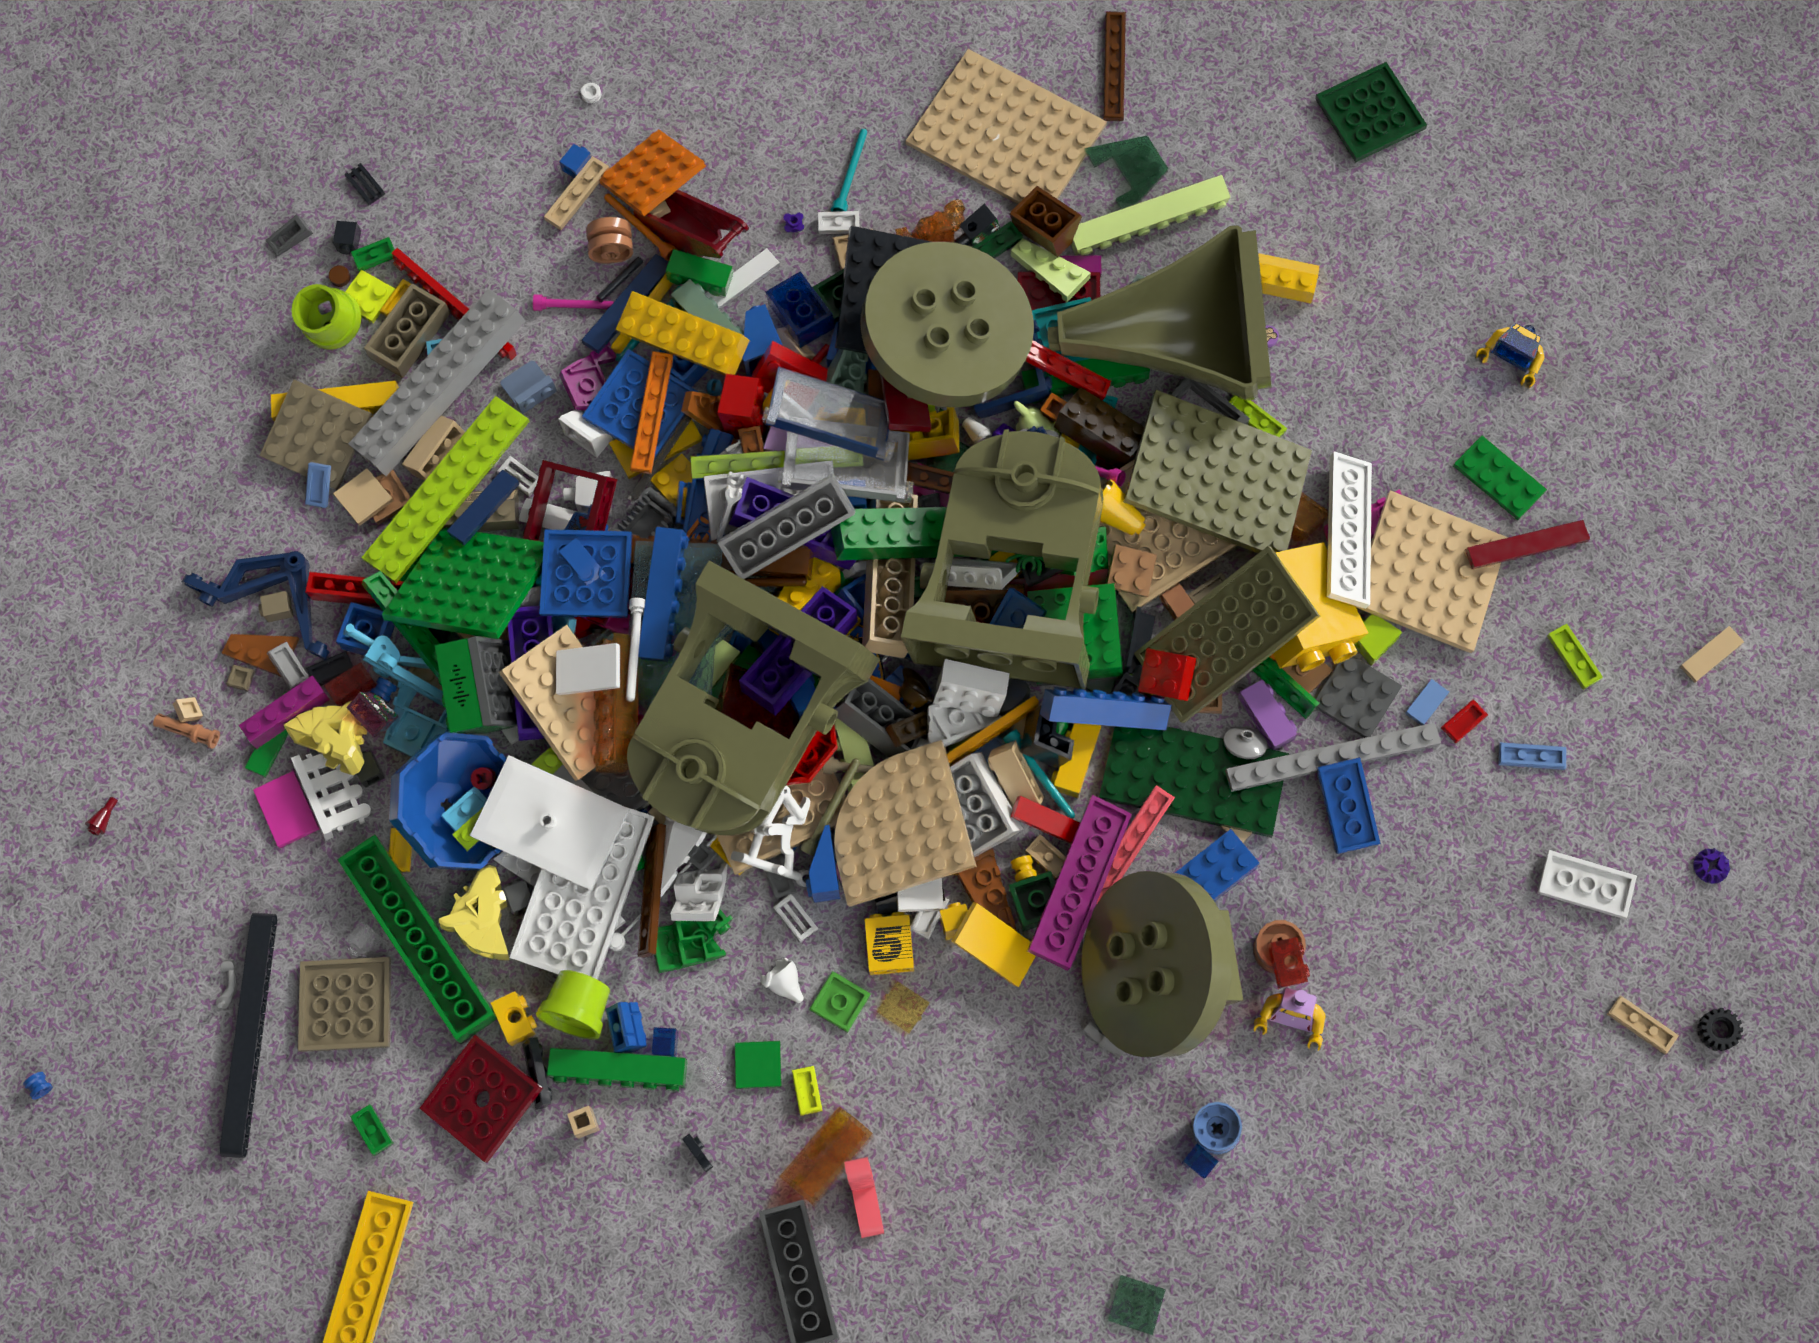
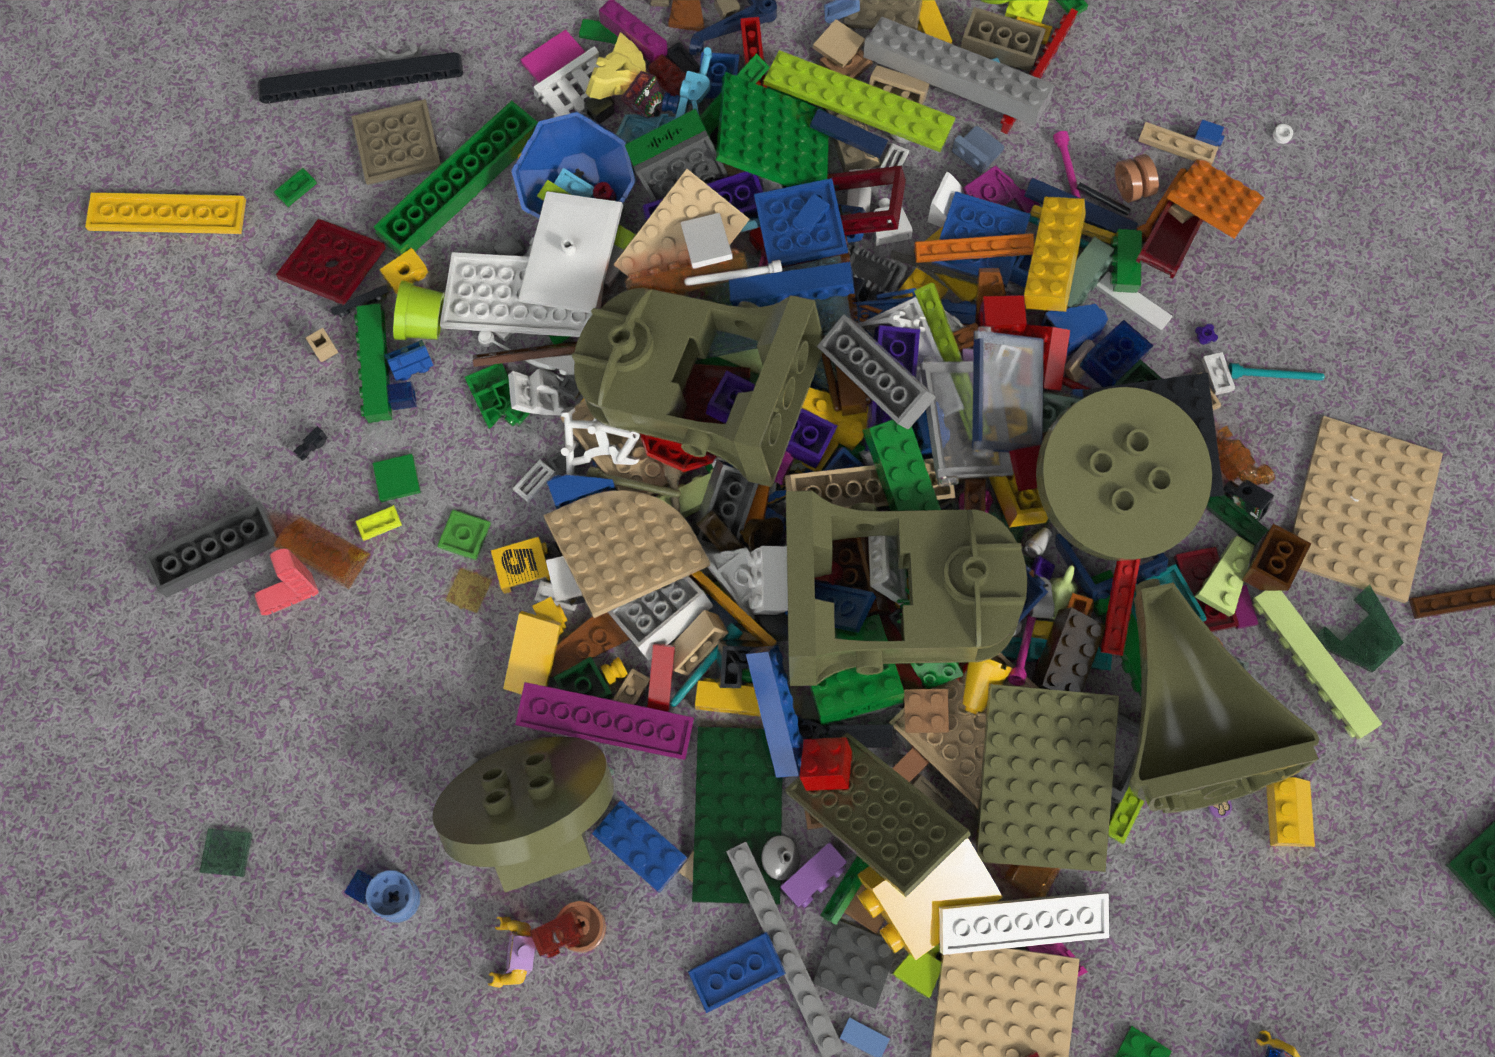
camera: 75 degrees right, 0 degrees up
(288, 665) = (677, 26): light grey tile -> none
(480, 930) = (486, 222): light yellow animal -> none
(783, 980) = (472, 480): white hat -> none
(1137, 835) = (662, 767): coral tile -> none

